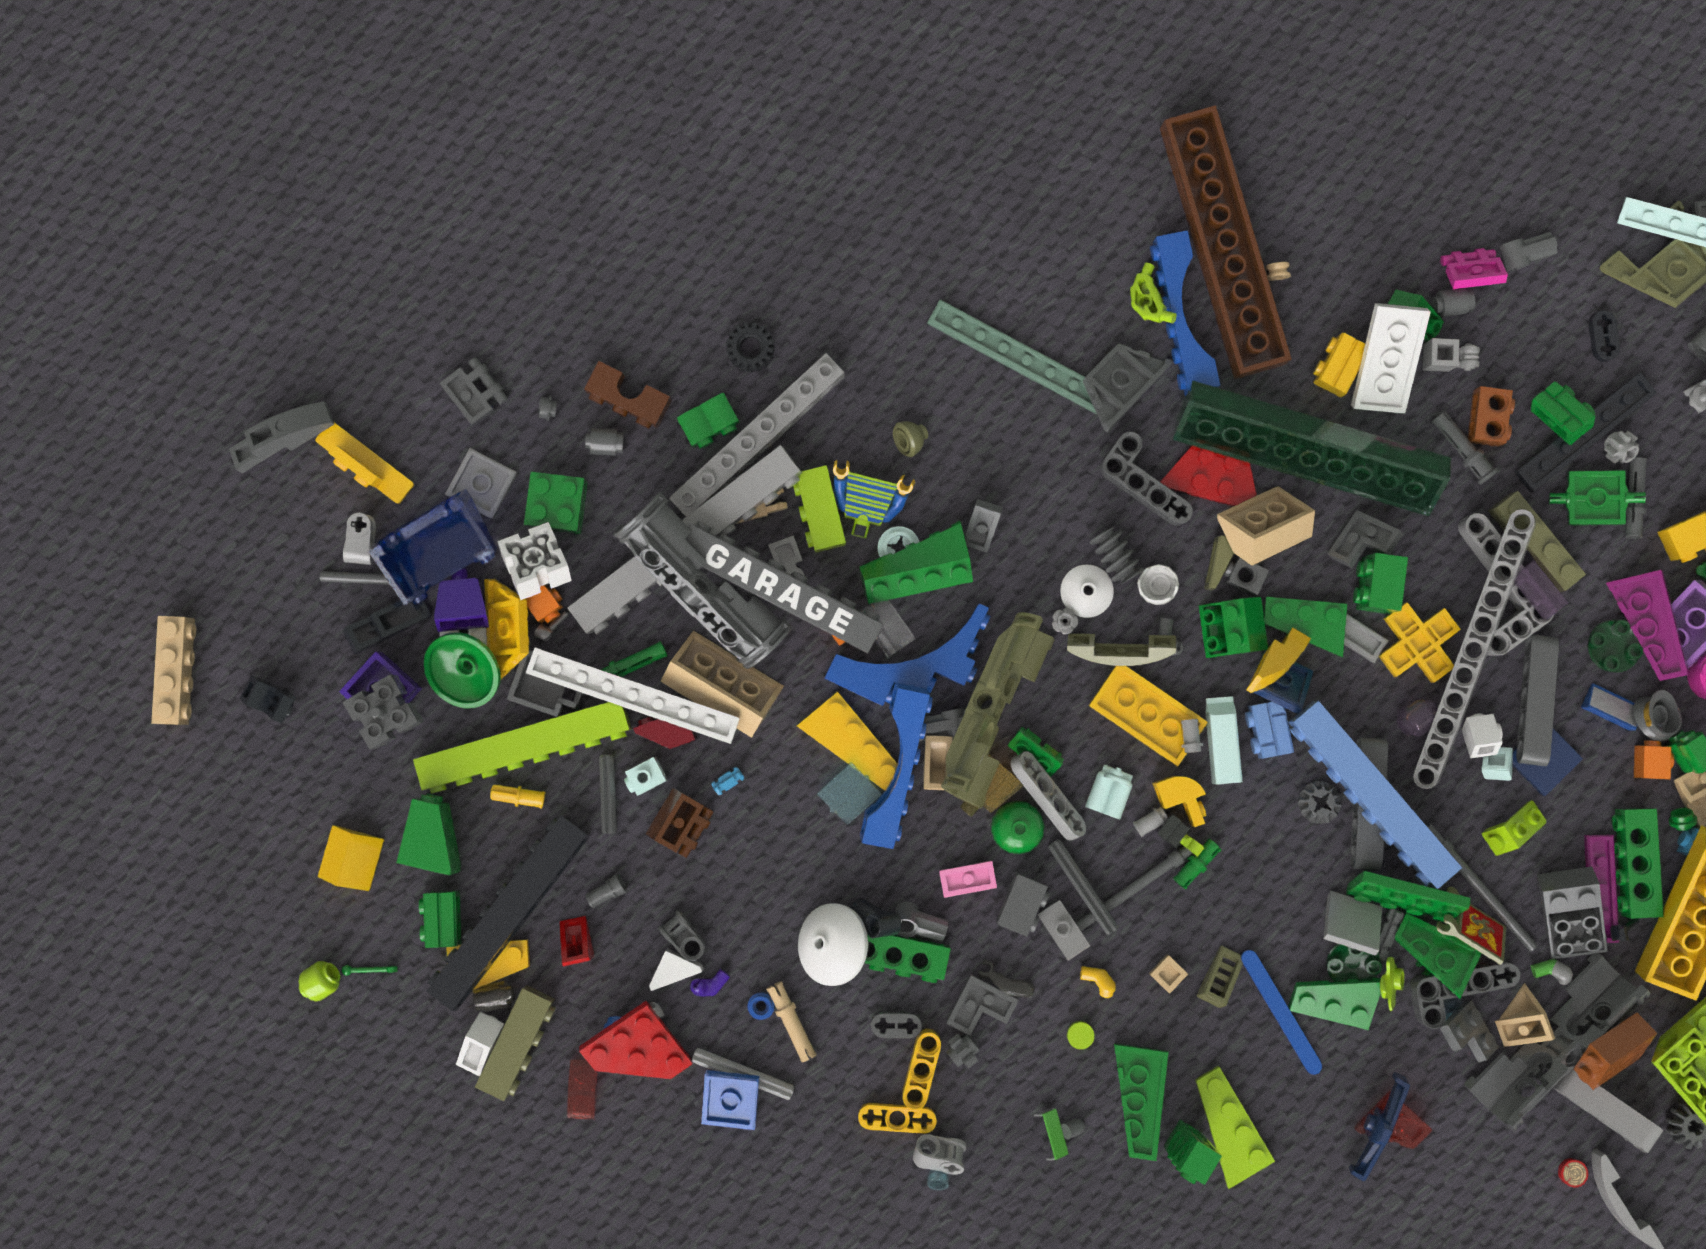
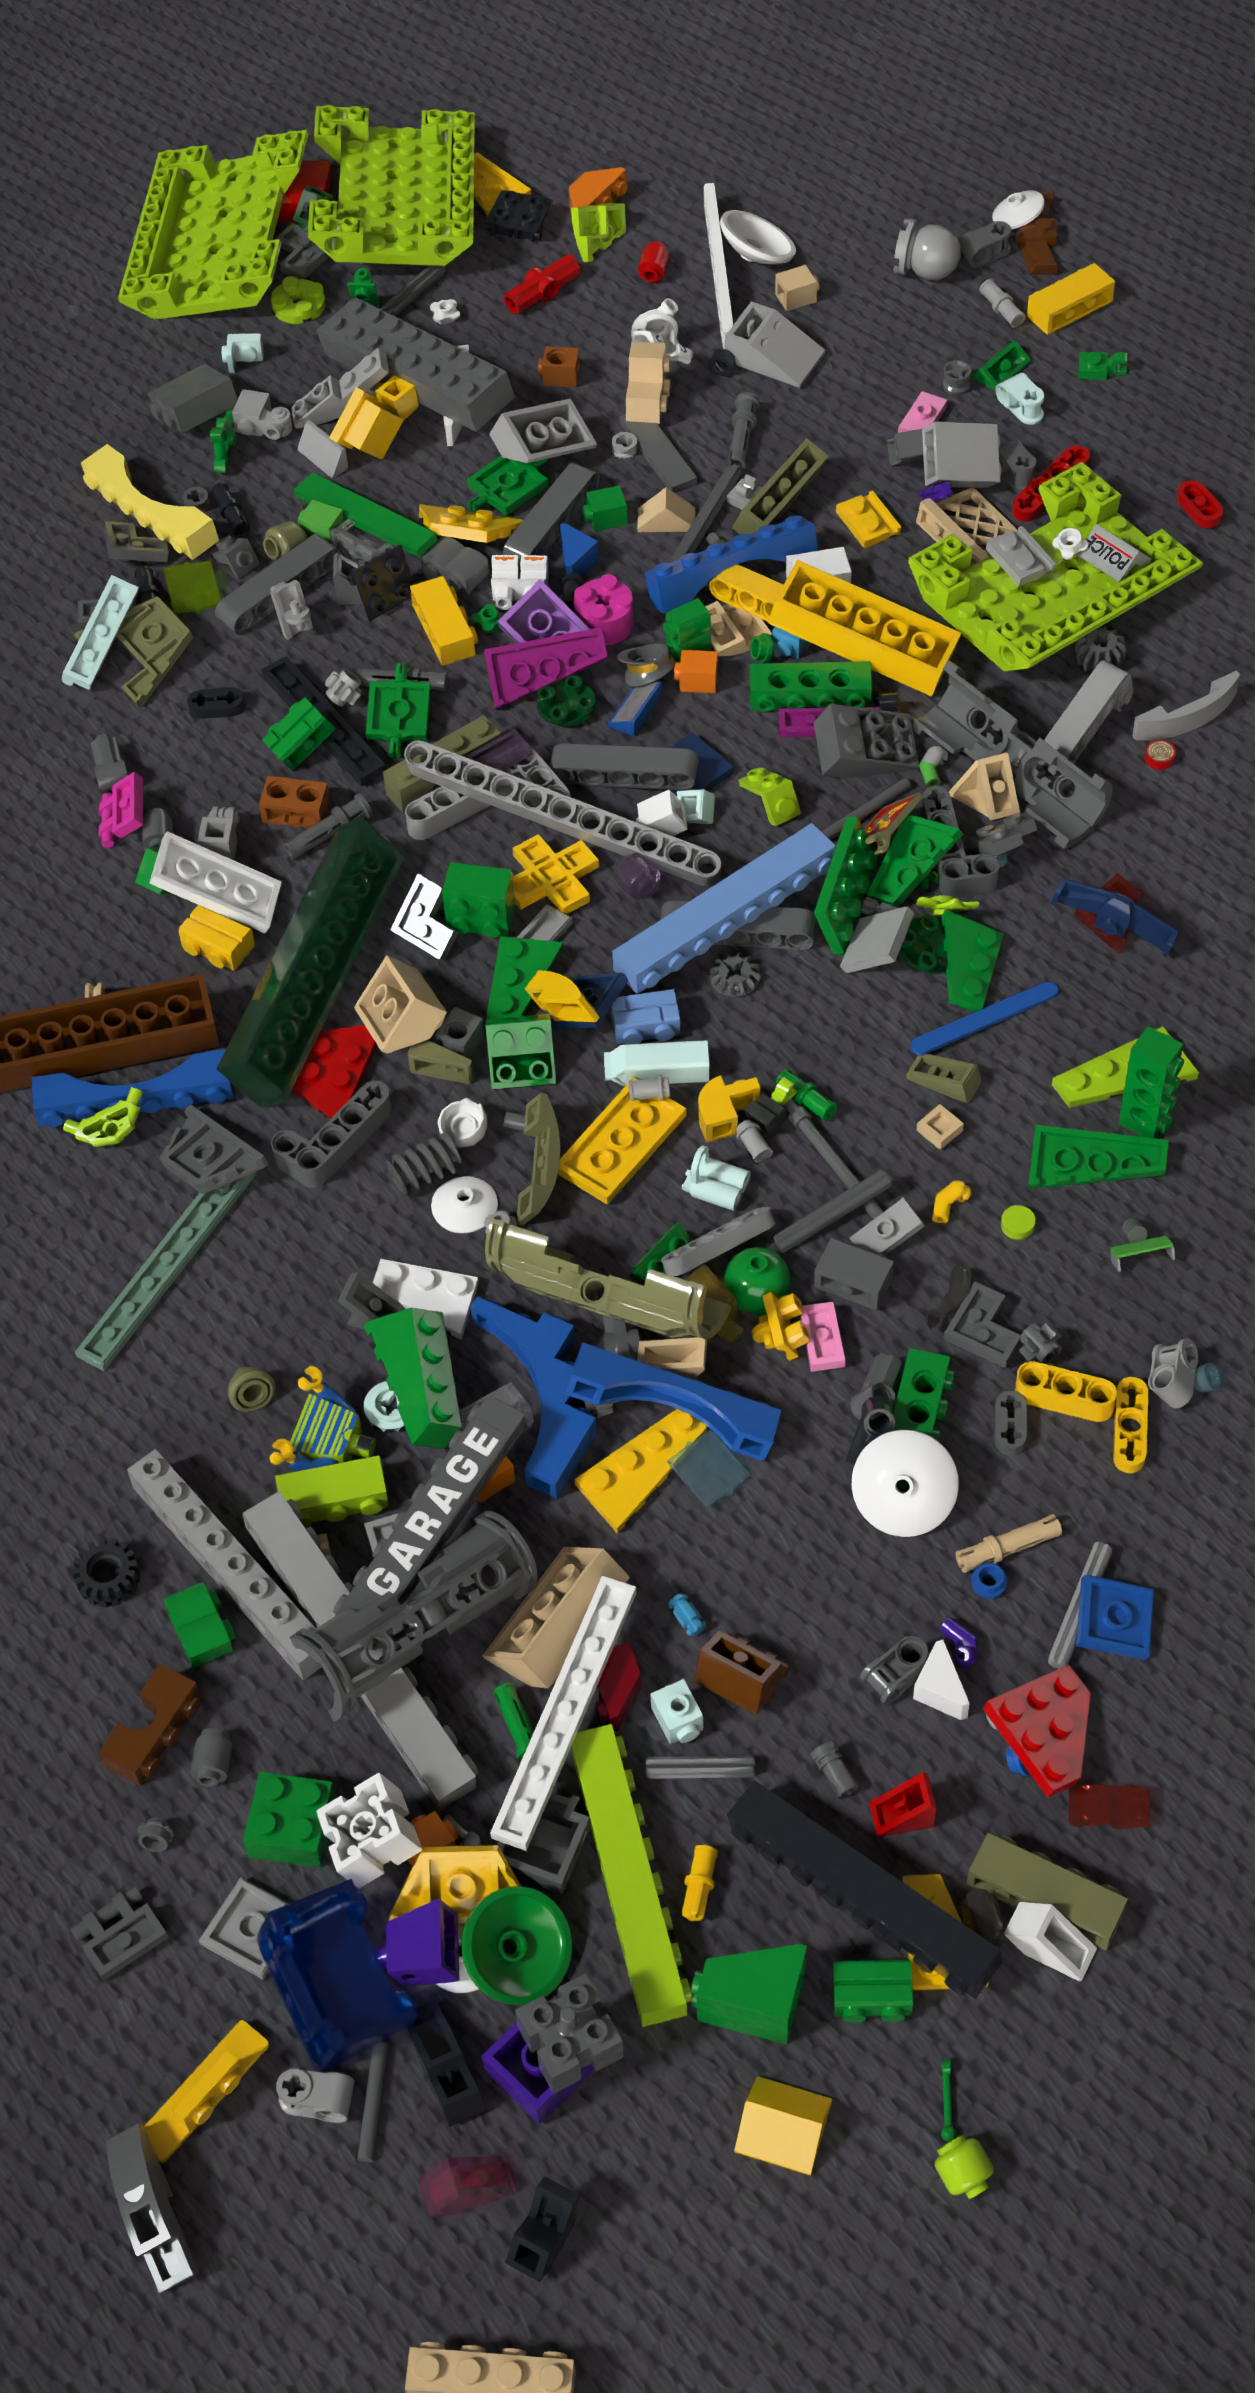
camera: 85 degrees left, 30 degrees down
(300, 646) = (465, 2184): none -> clear pink slope
(972, 844) = (775, 1327): none -> yellow hips
(1001, 569) = (429, 1290): none -> white wing
(1615, 1051) = (1019, 700): dark orange brick -> none

